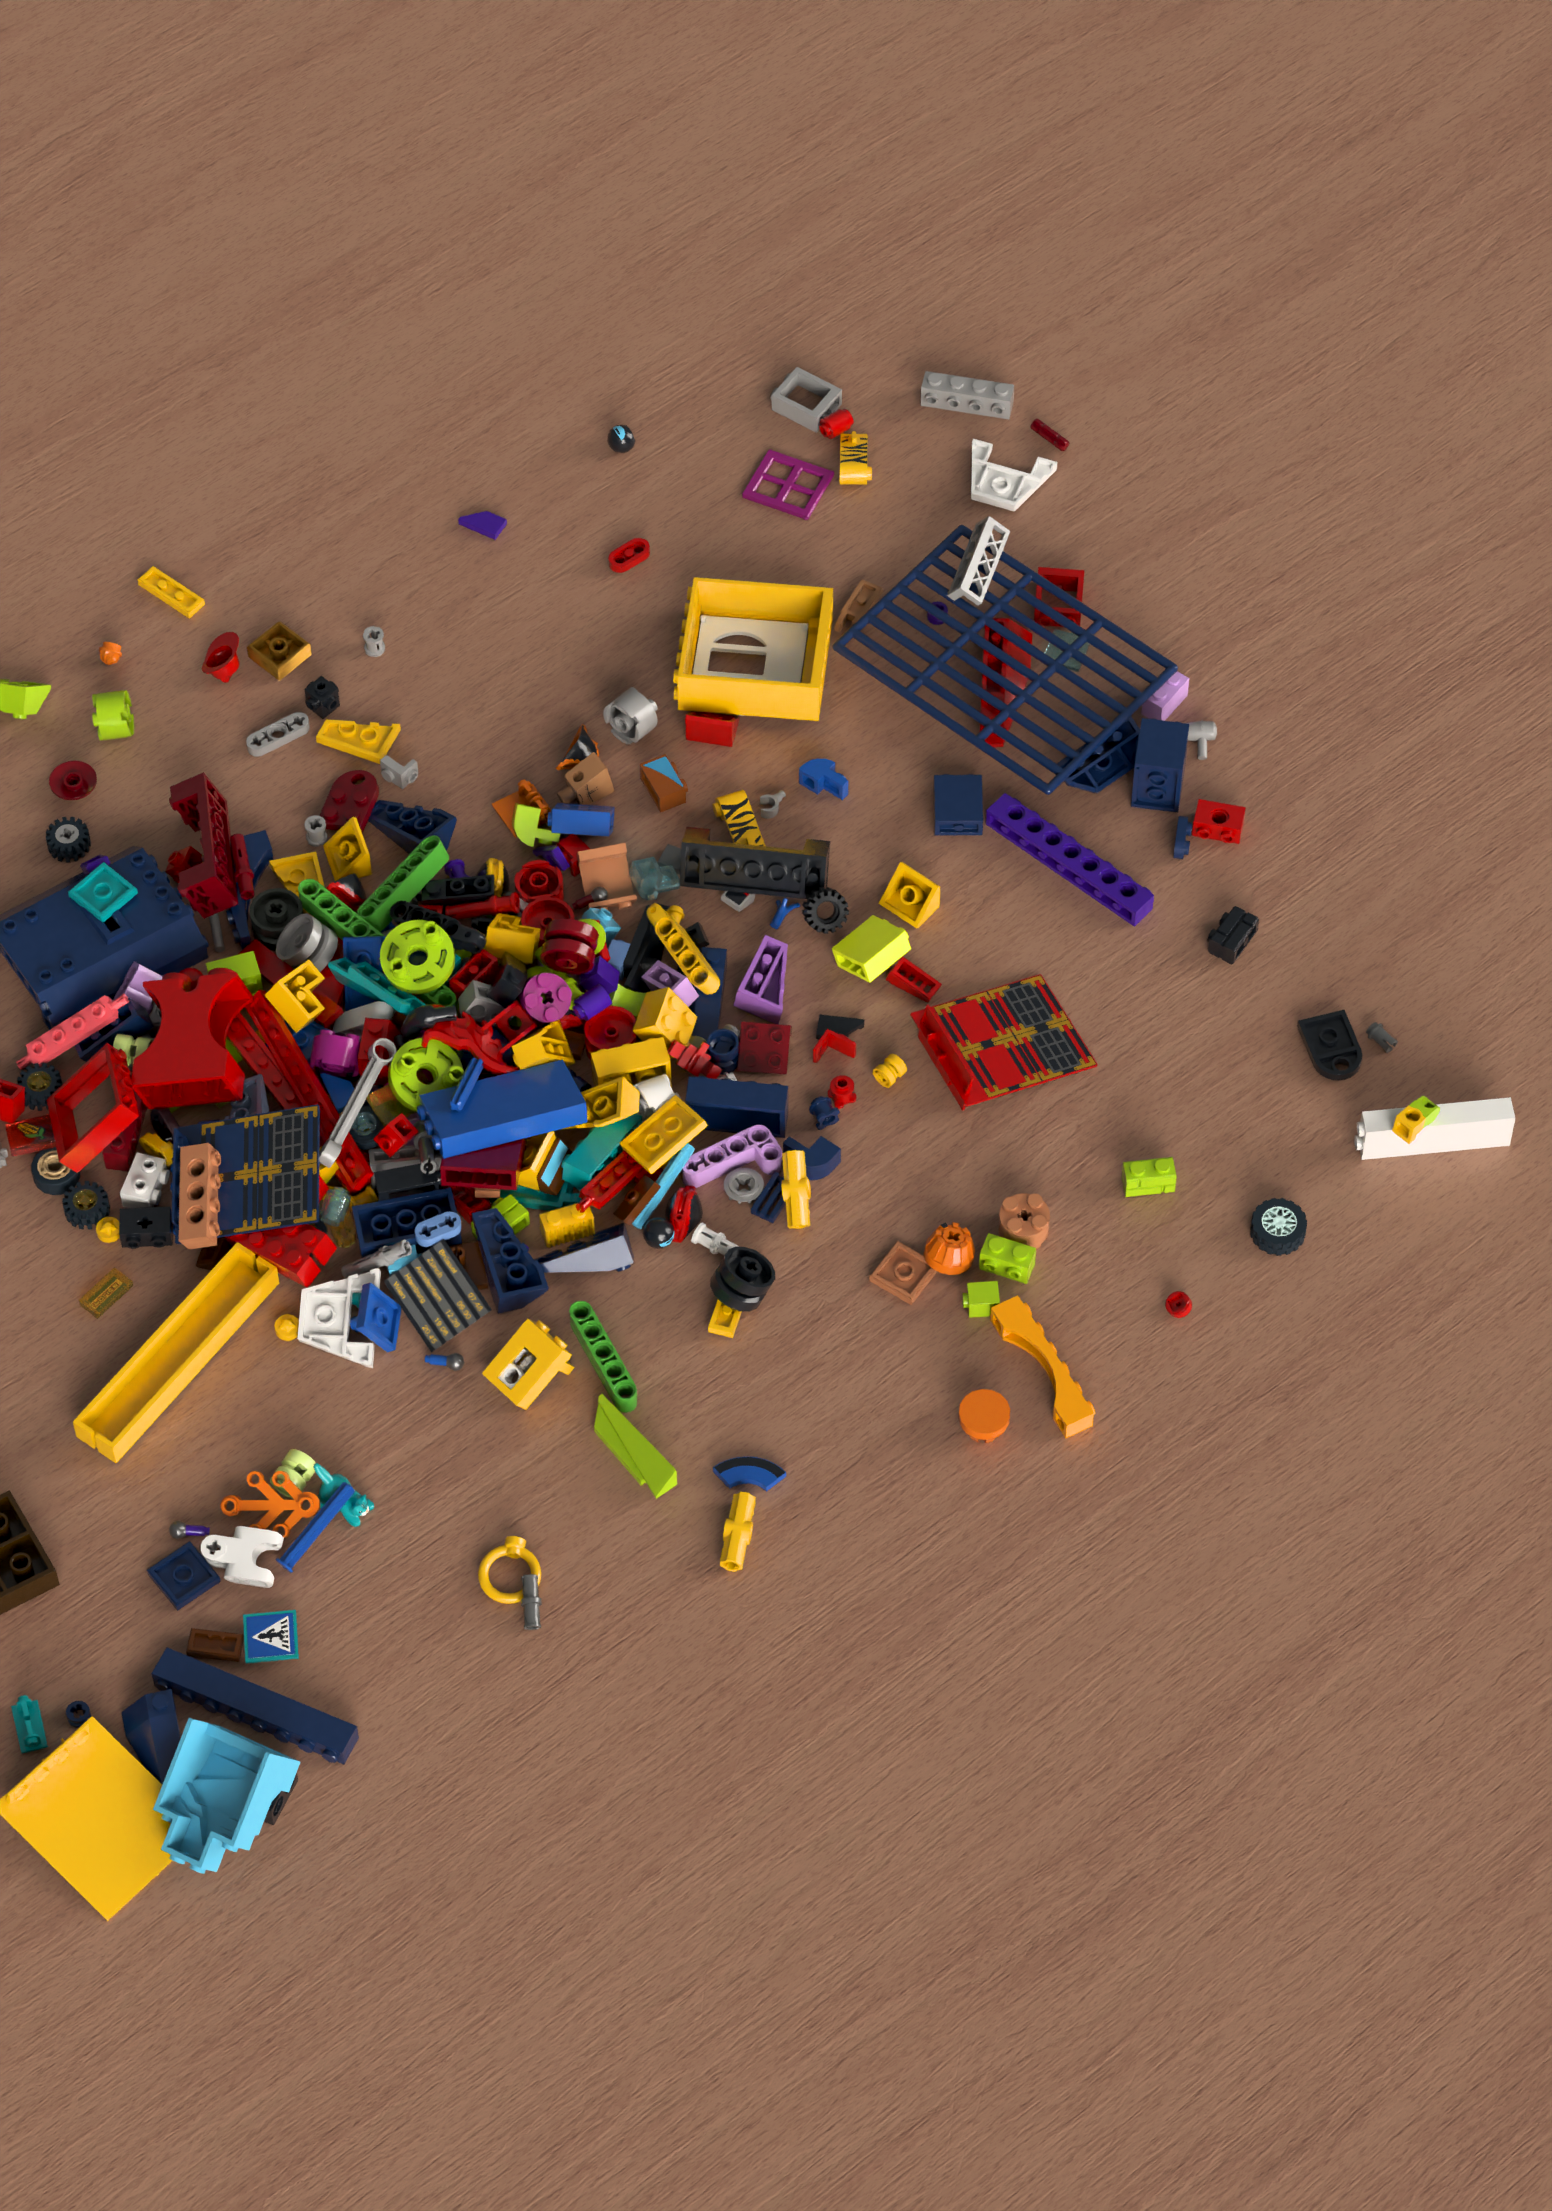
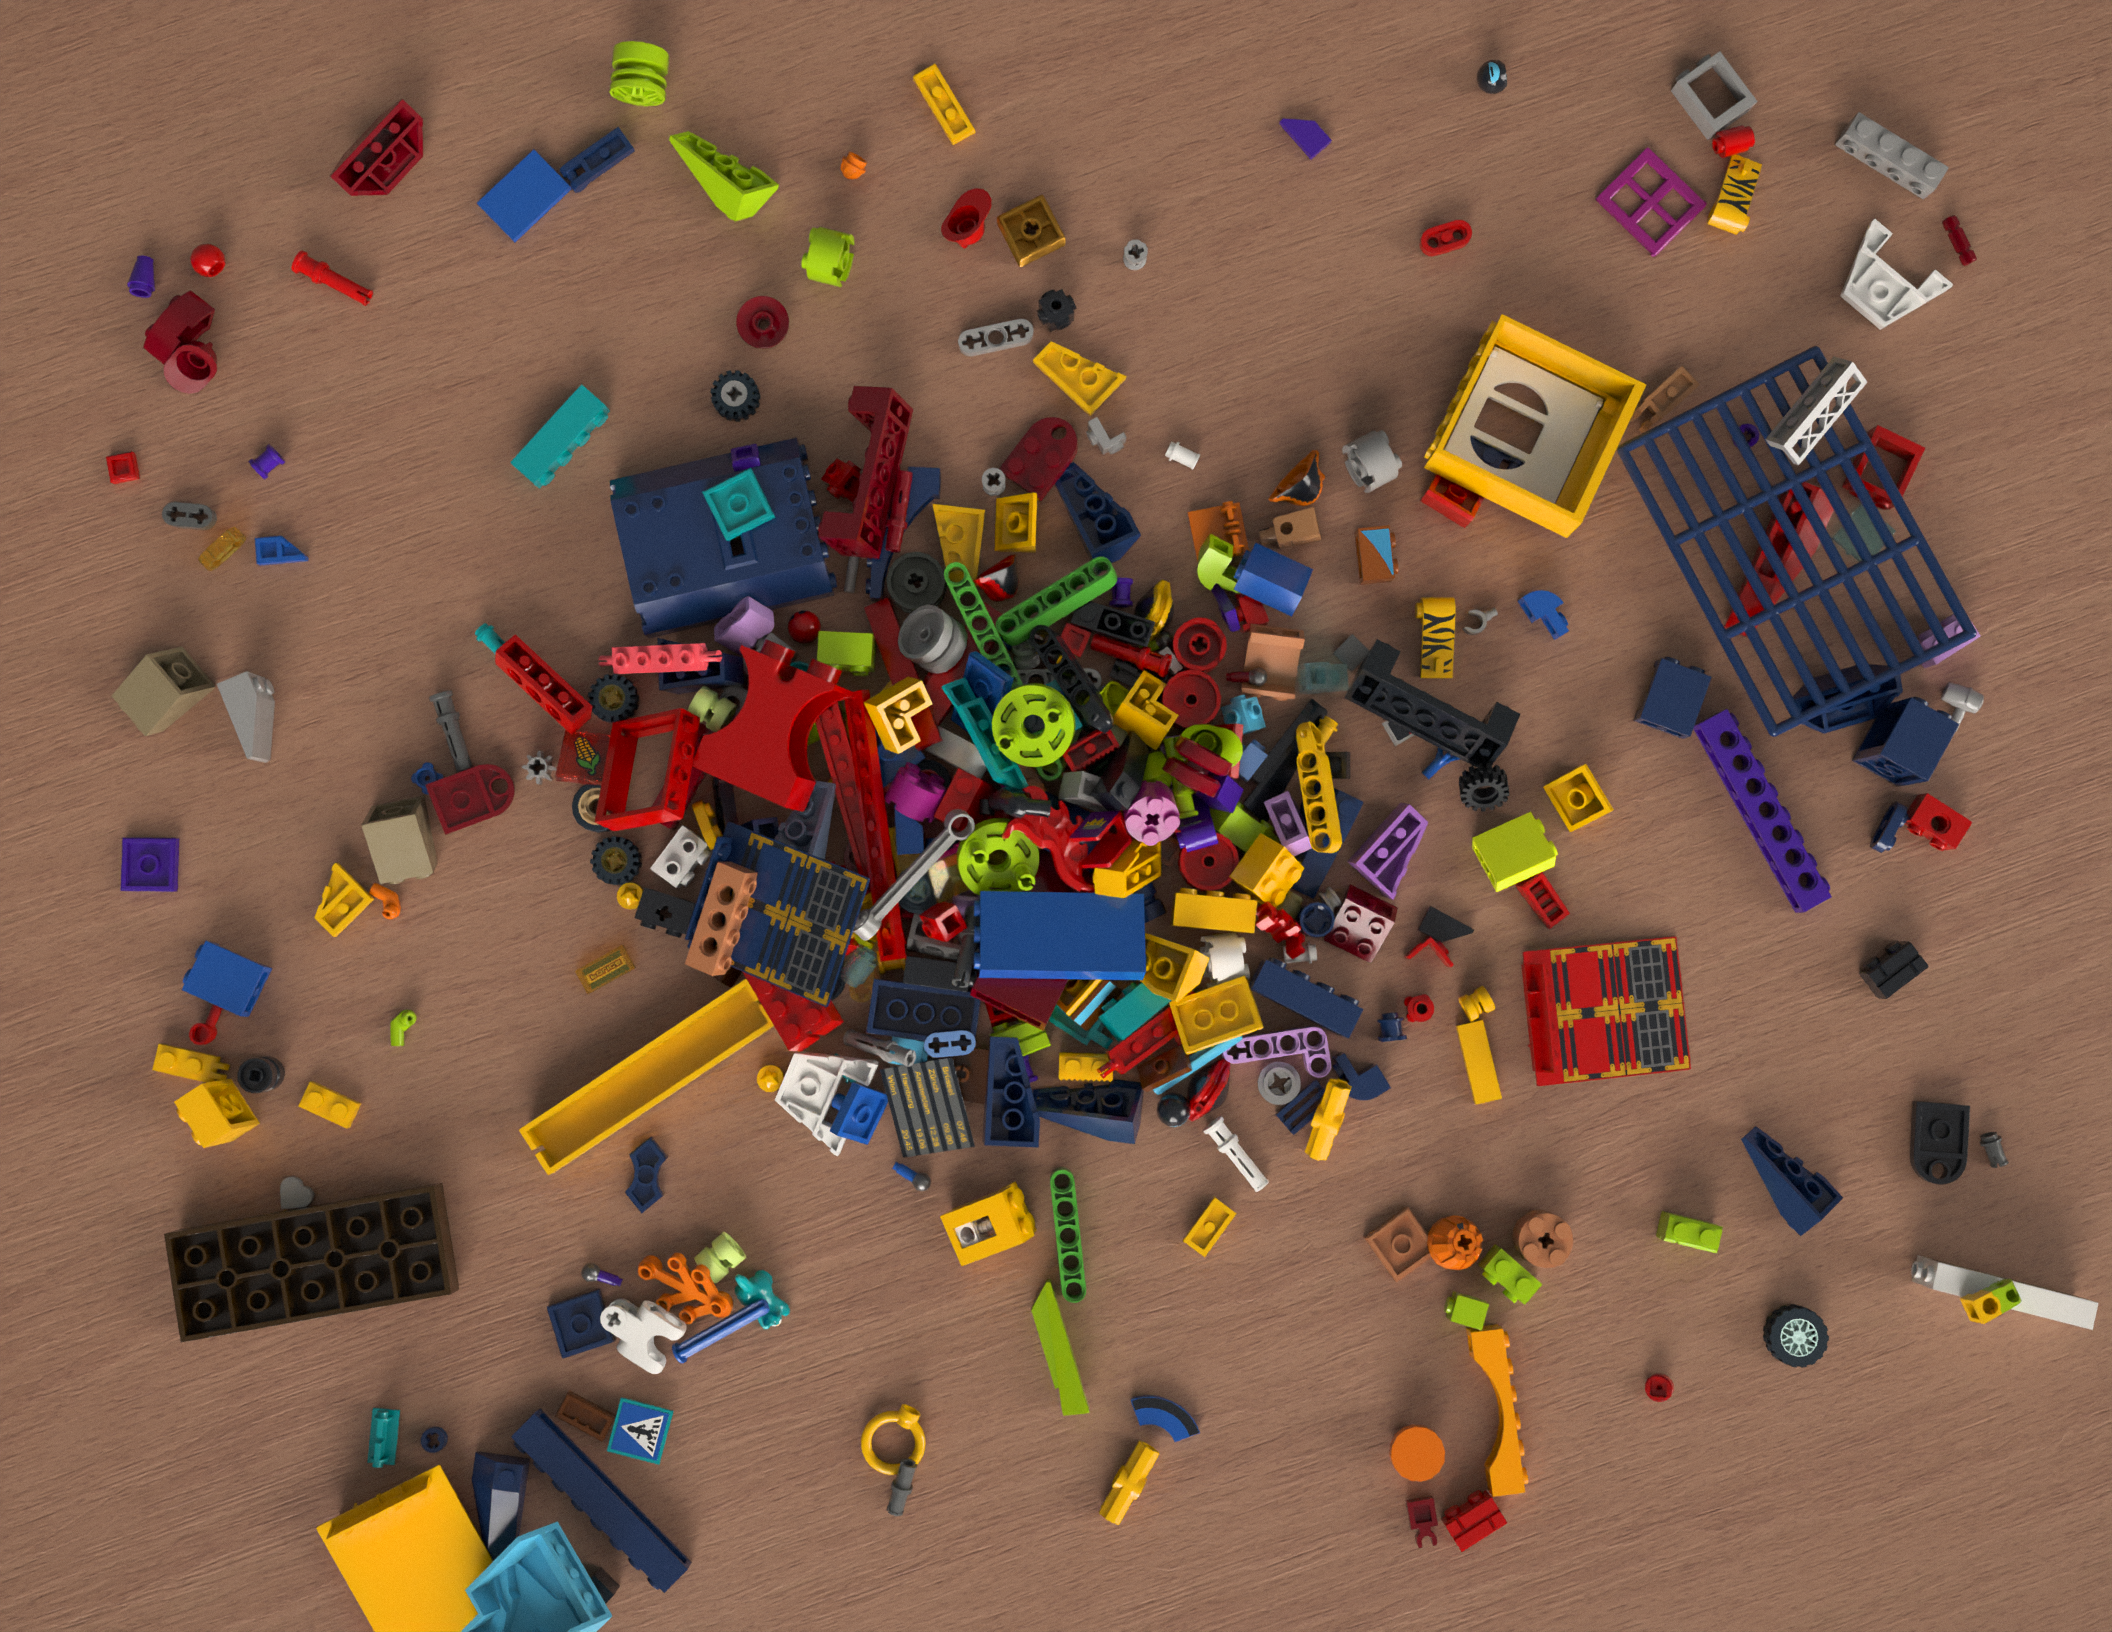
camera: 15 degrees right, 30 degrees up
(203, 1450) = (645, 1185): none -> dark blue tile
(466, 1084) = (1031, 900): blue axle -> none
(470, 765) = (1182, 455): none -> white pin
(742, 1279) = (1235, 1208): black wheel -> none
(911, 1116) = (1478, 1062): none -> yellow tile
(1015, 1471) = (1422, 1517): none -> dark red plate
(1060, 1457) = (1473, 1519): none -> red brick
(1233, 1123) = (1797, 1193): none -> dark blue wedge

